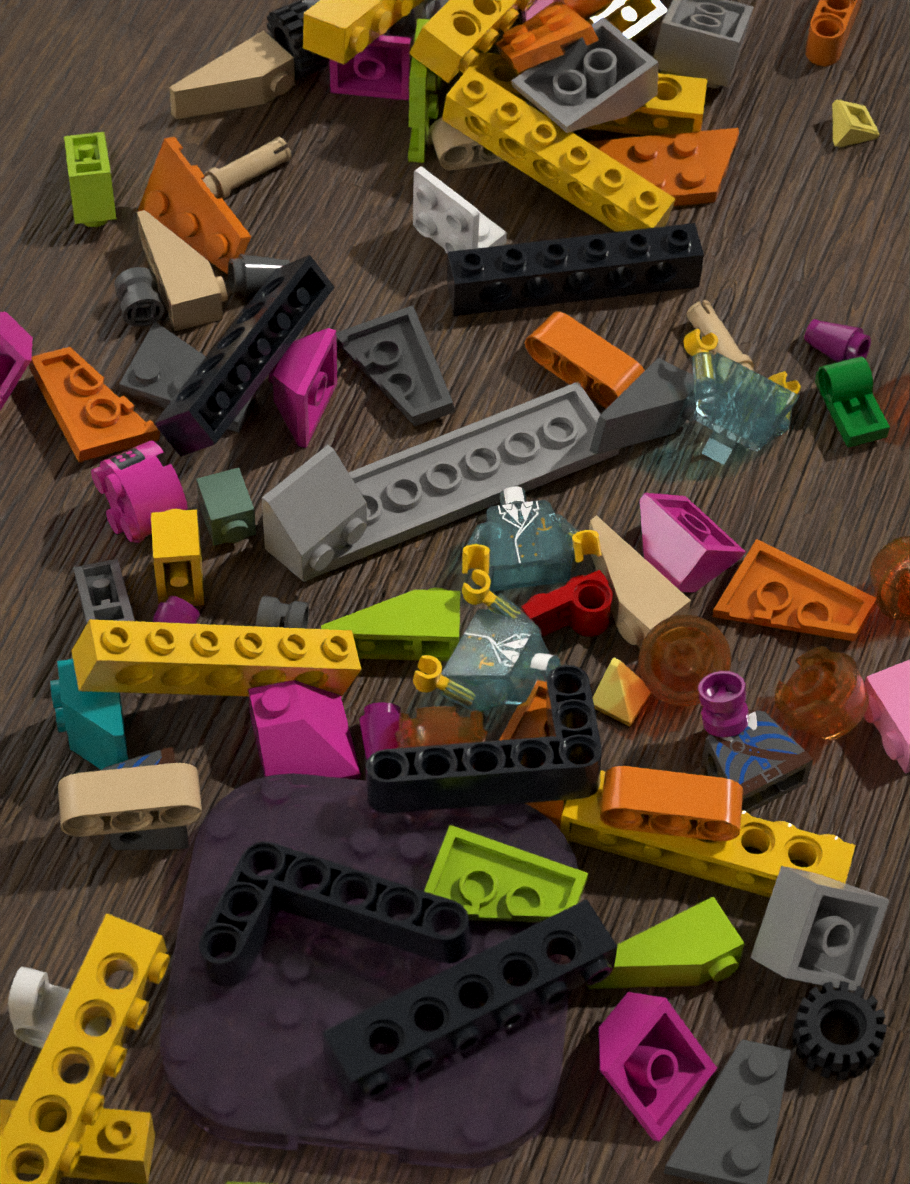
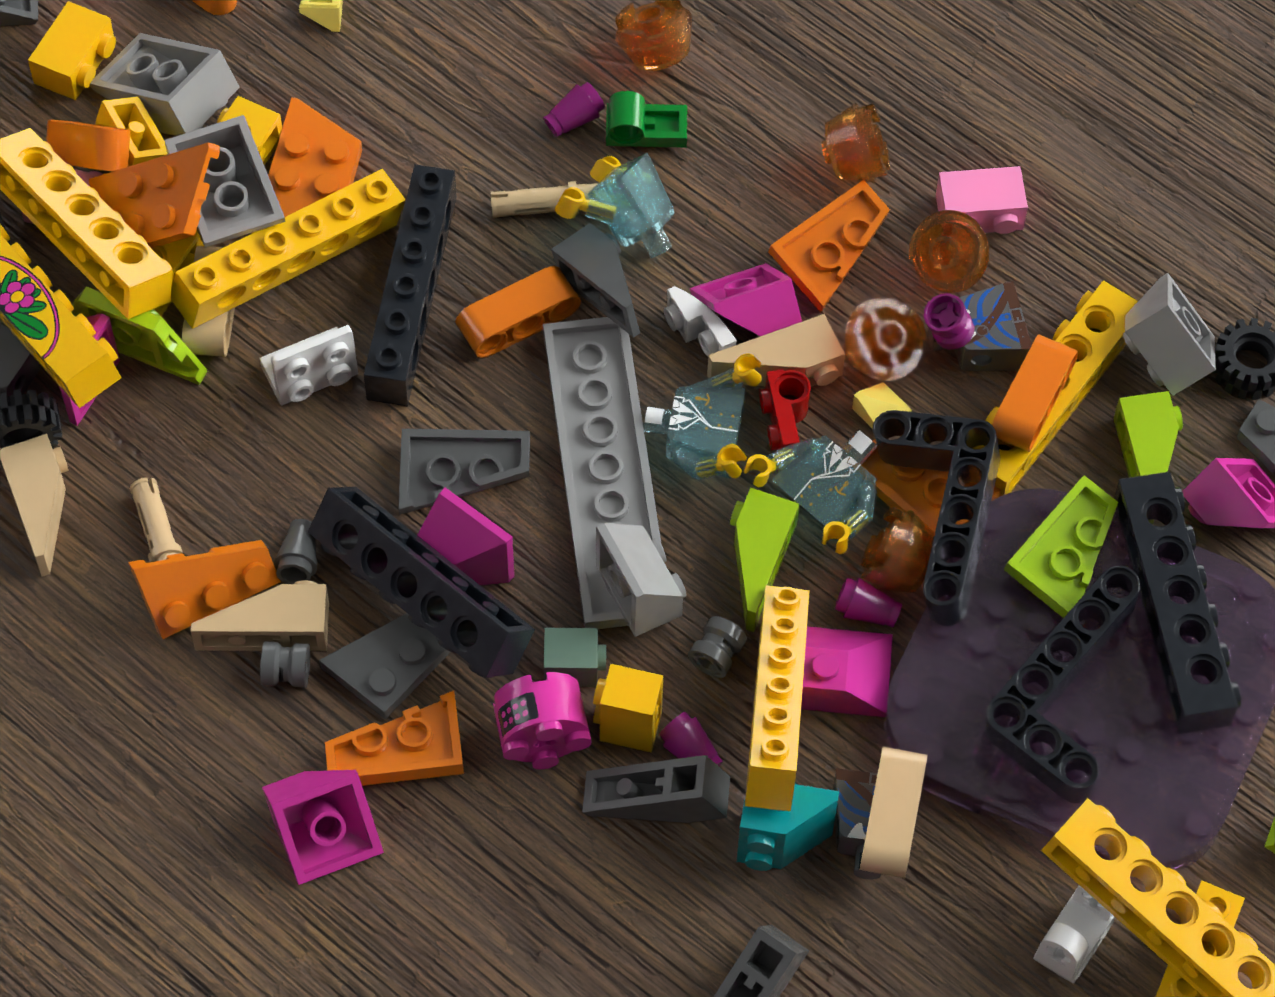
camera: 70 degrees left, 5 degrees up
(90, 179) = (107, 666): lime slope -> none
(628, 519) = (696, 321): none -> white slope

